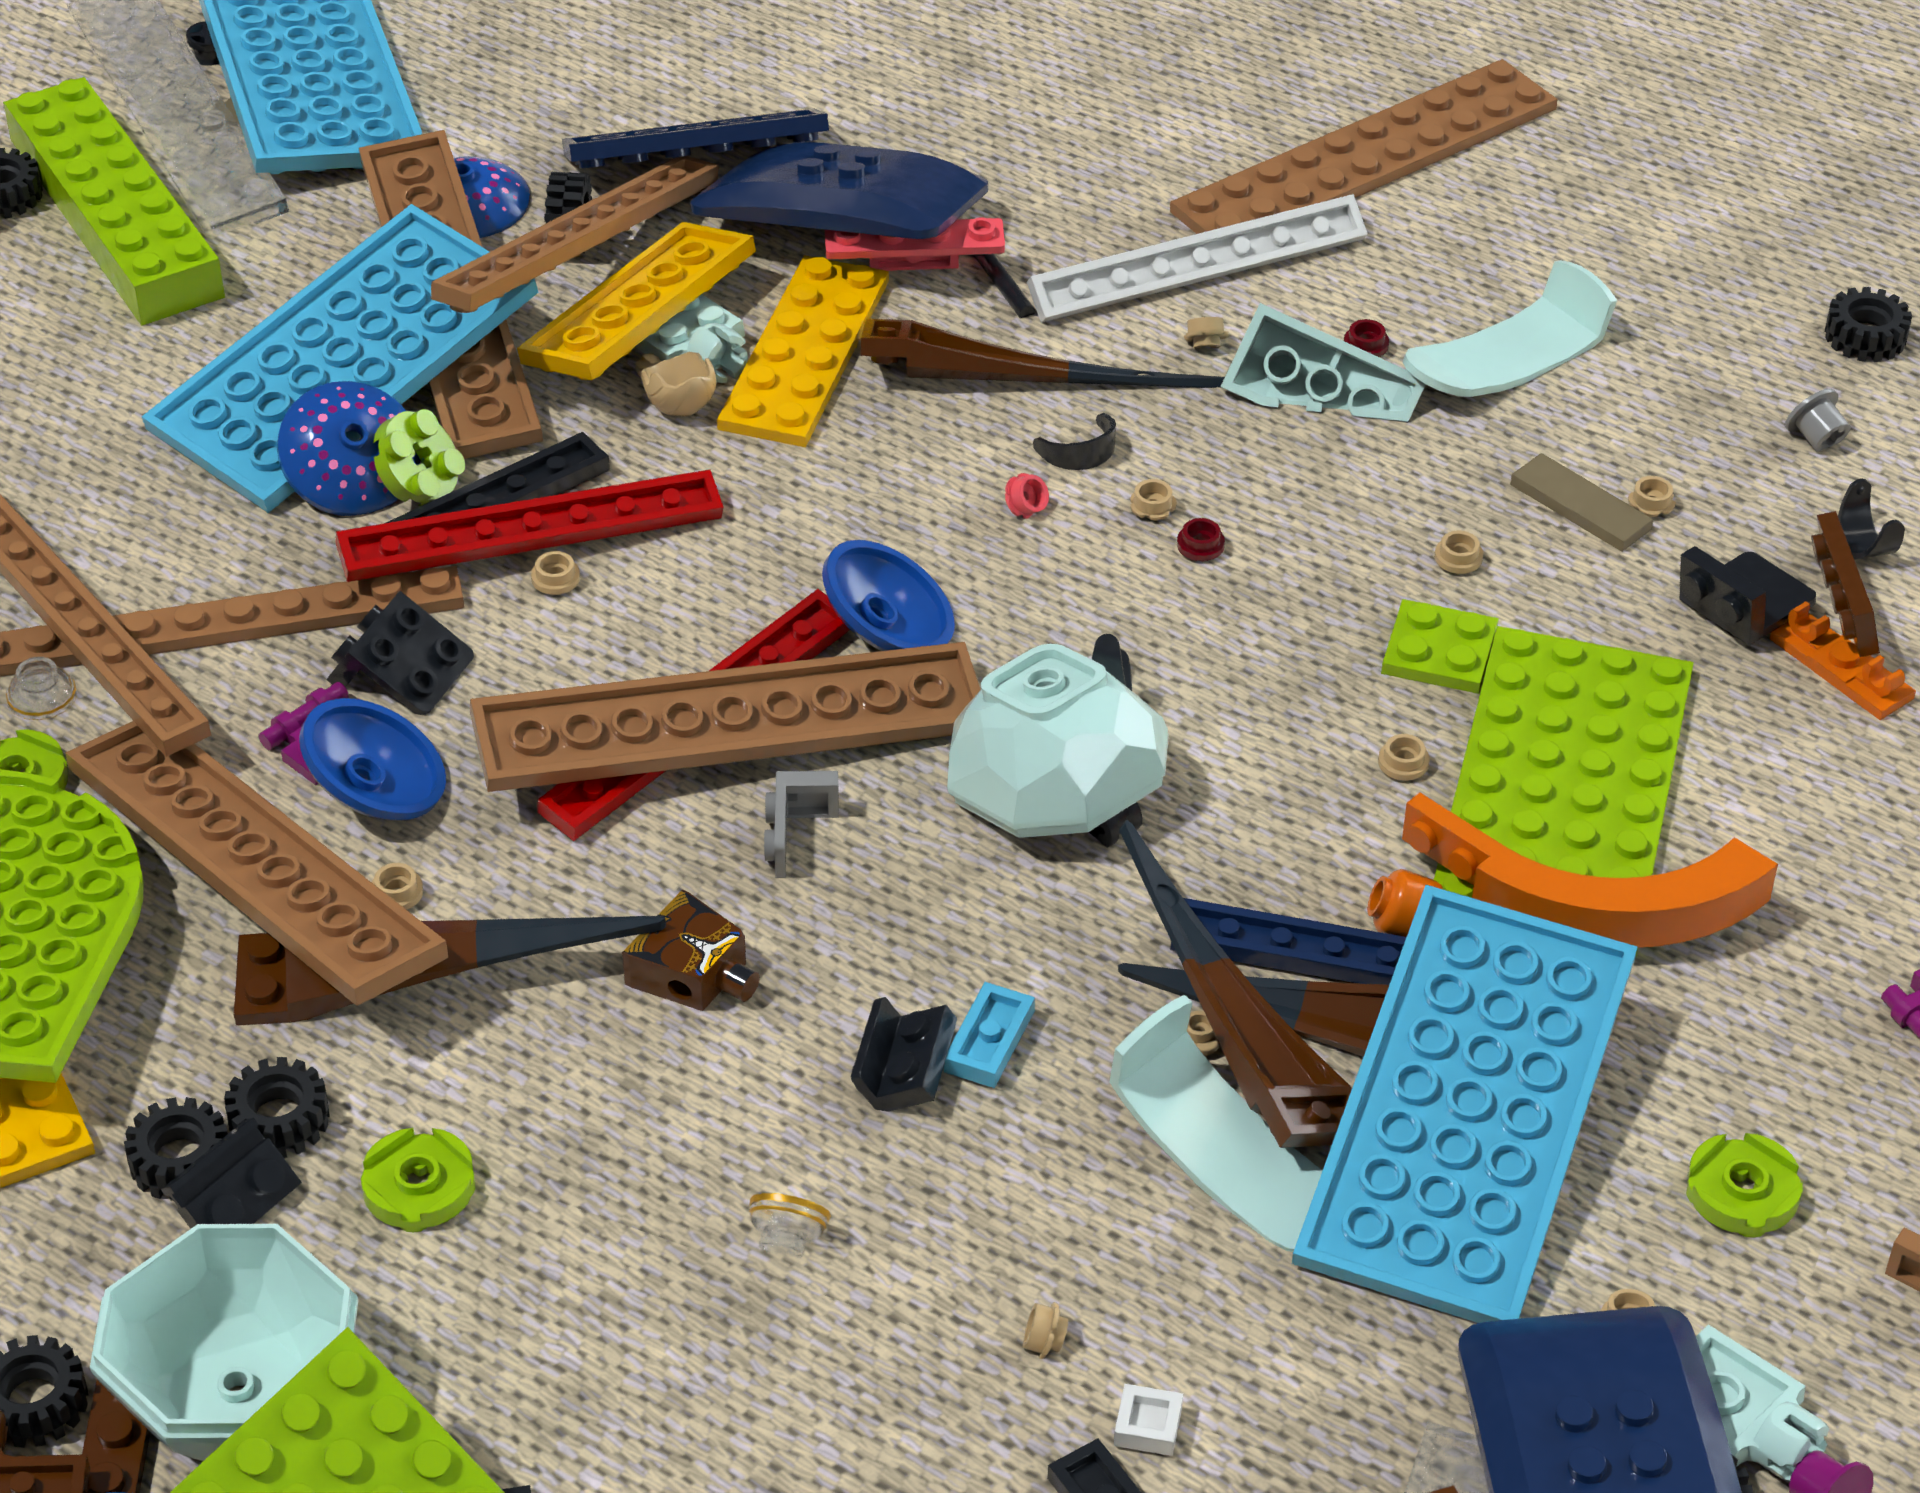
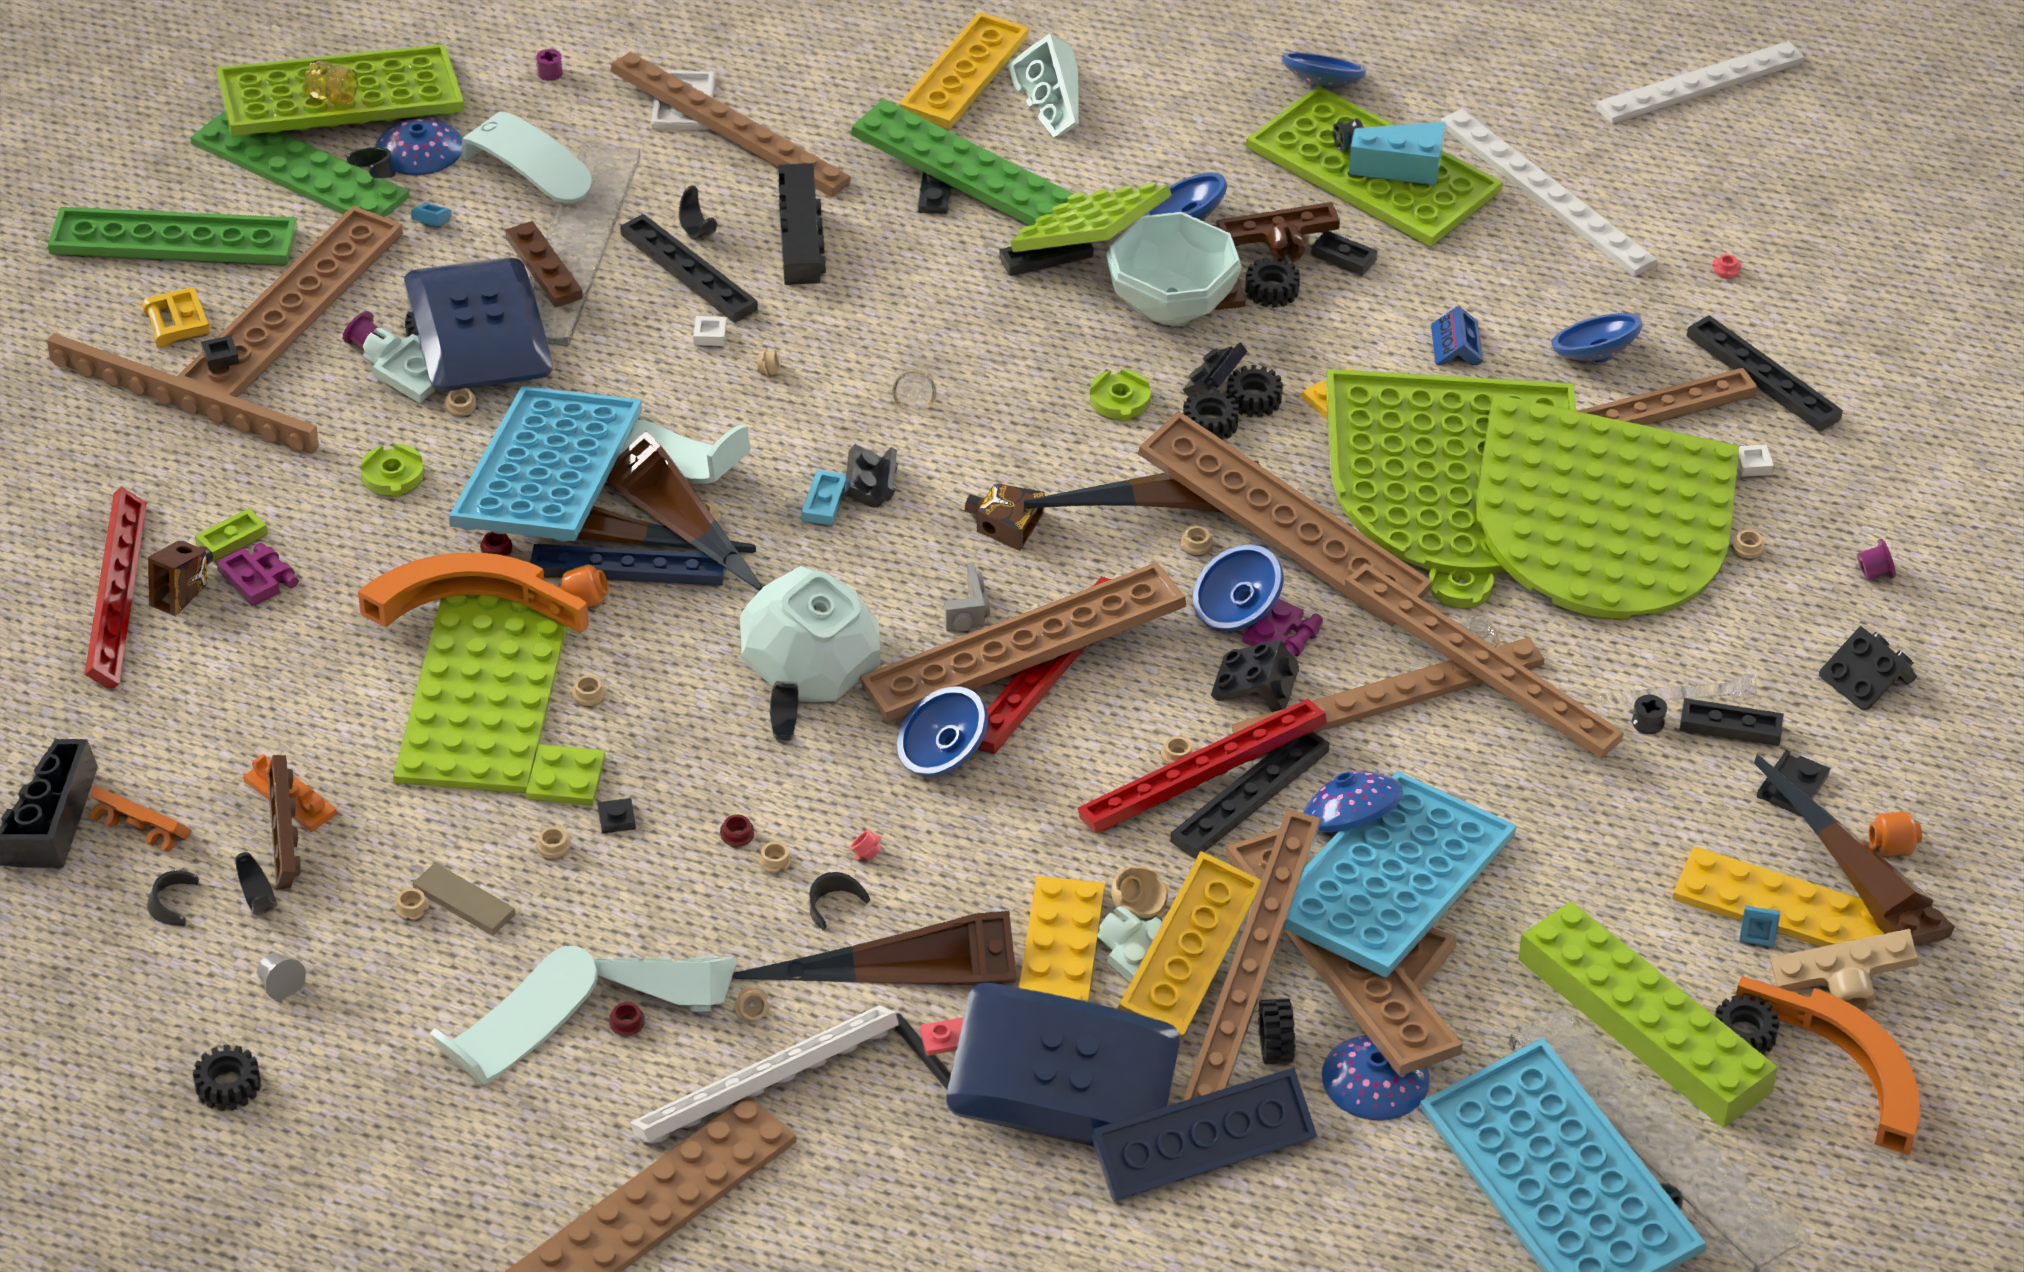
camera: 170 degrees right, 0 degrees up
(419, 434) = (1302, 793): lime plate -> none
(1369, 583) = (616, 815): none -> black plate
(1743, 595) = (355, 822): black bracket -> none

